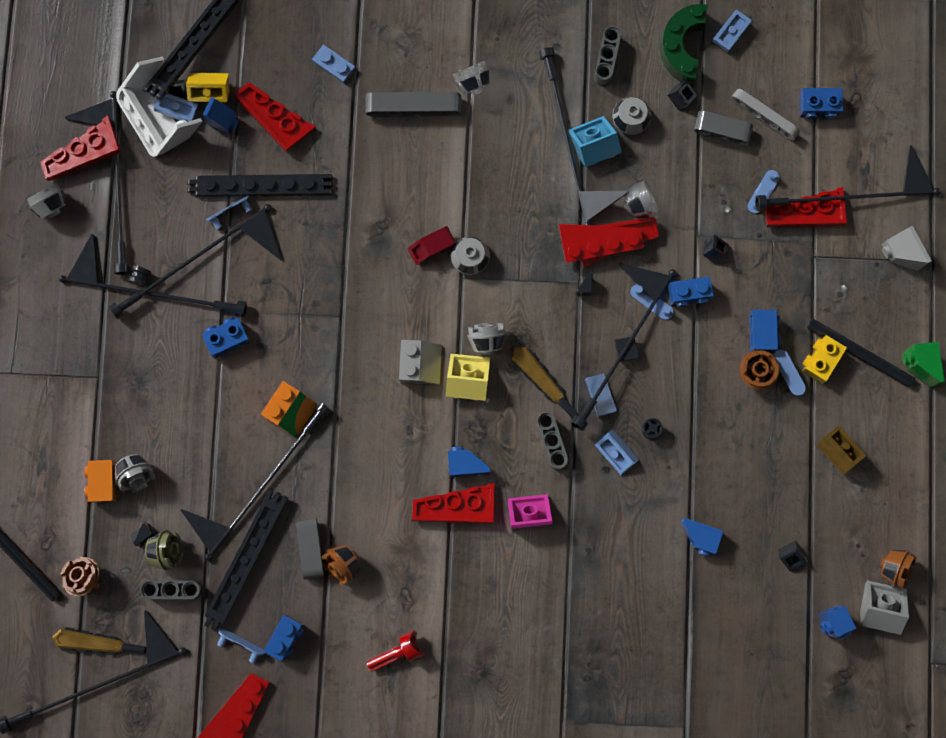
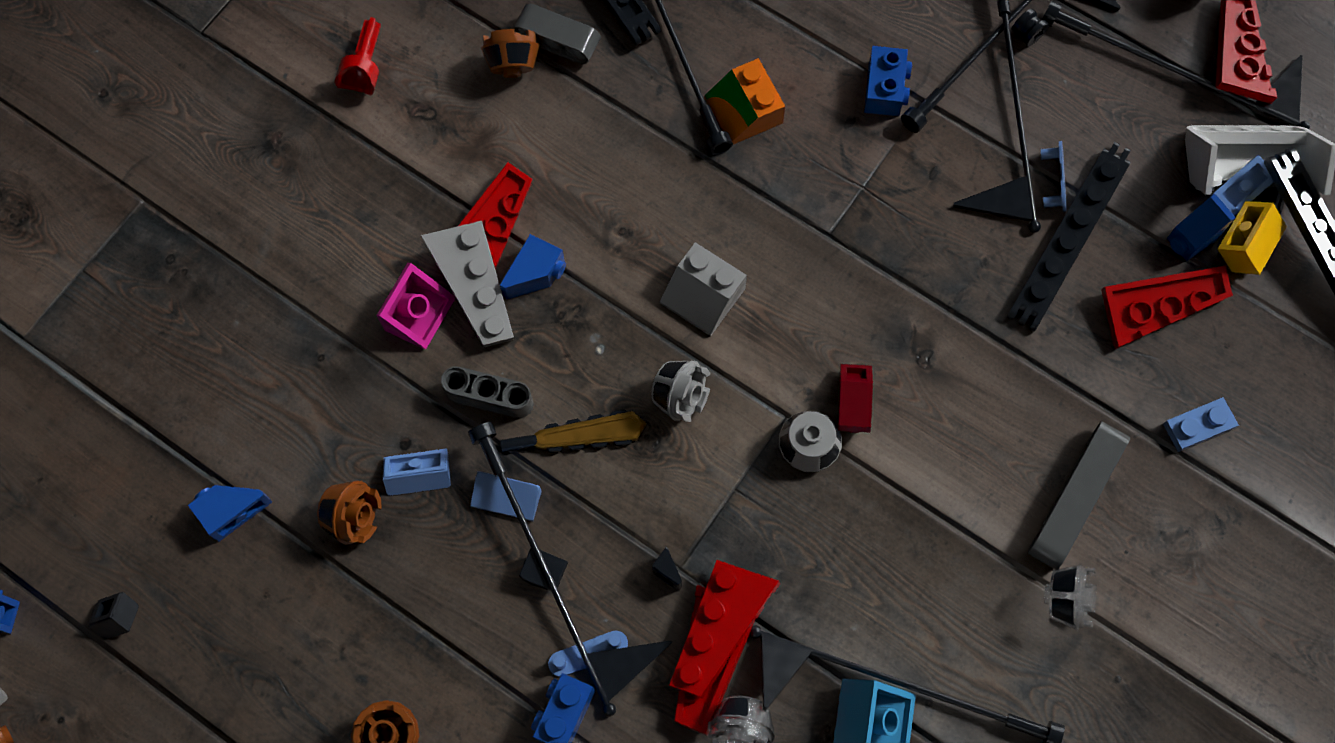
camera: 125 degrees right, 10 degrees down
(467, 377) = (644, 336): light yellow slope -> none
(493, 492) = (469, 270): none -> light grey wing
(654, 426) = (408, 530): black wheel -> none
(663, 468) = (349, 511): none -> dark orange cone

